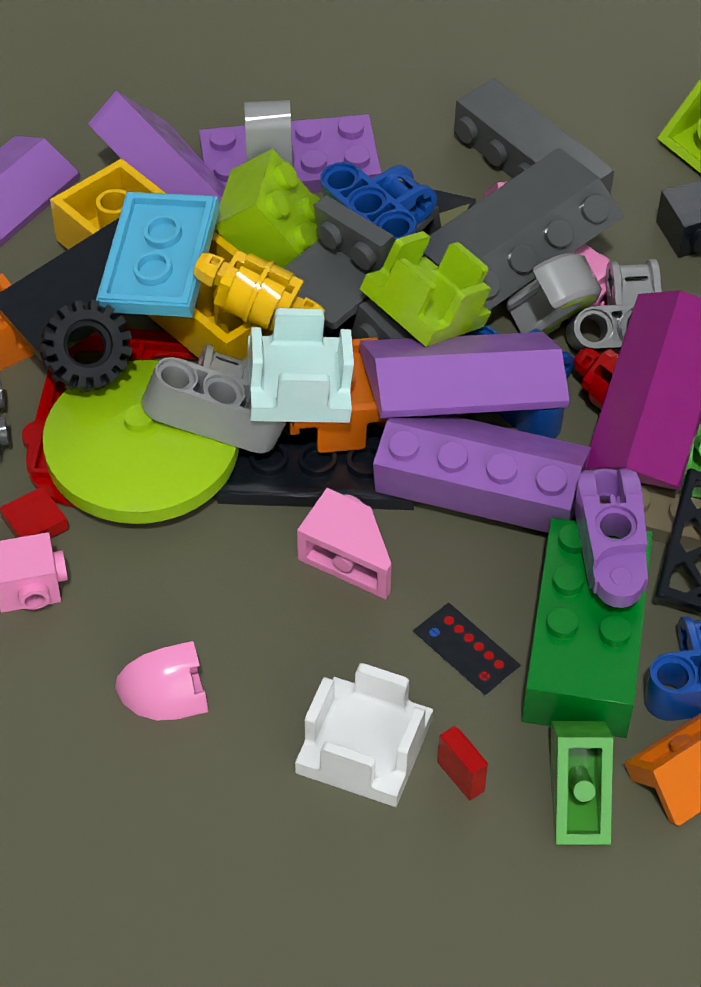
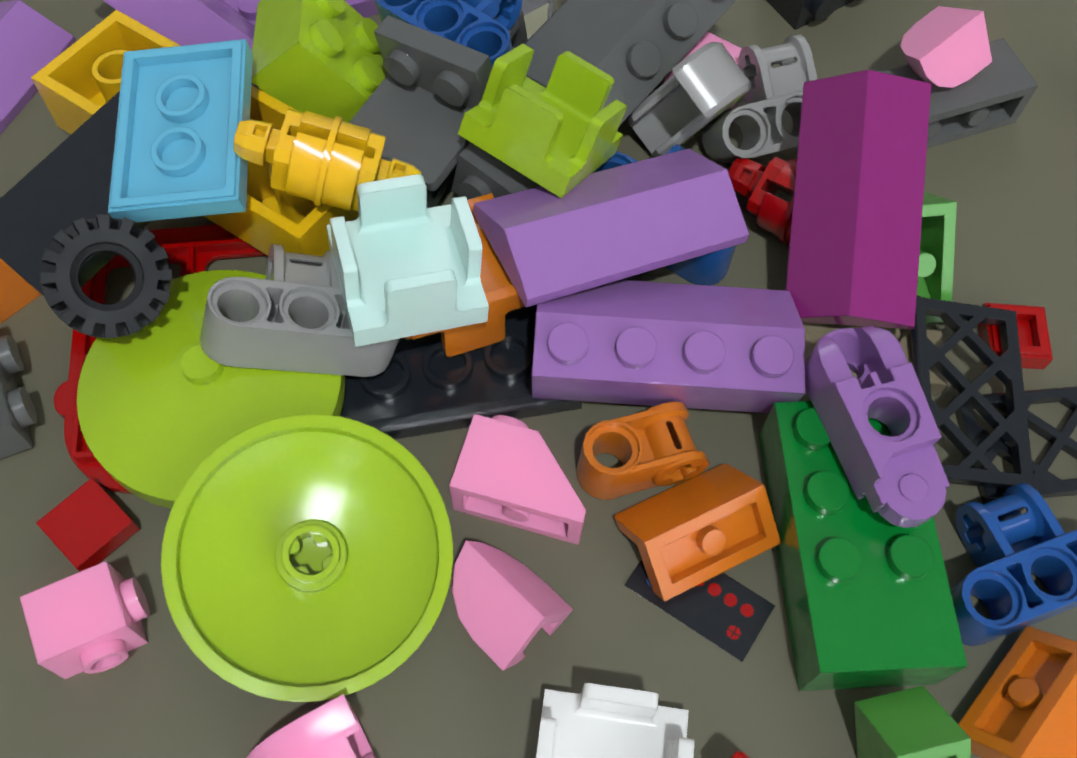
camera: 15 degrees left, 10 degrees up
(188, 556) = (307, 558): none -> lime dish
(318, 619) = (503, 602): none -> bright pink brick
(443, 541) = (650, 445): none -> orange piece
(477, 602) = (700, 529): none -> orange panel

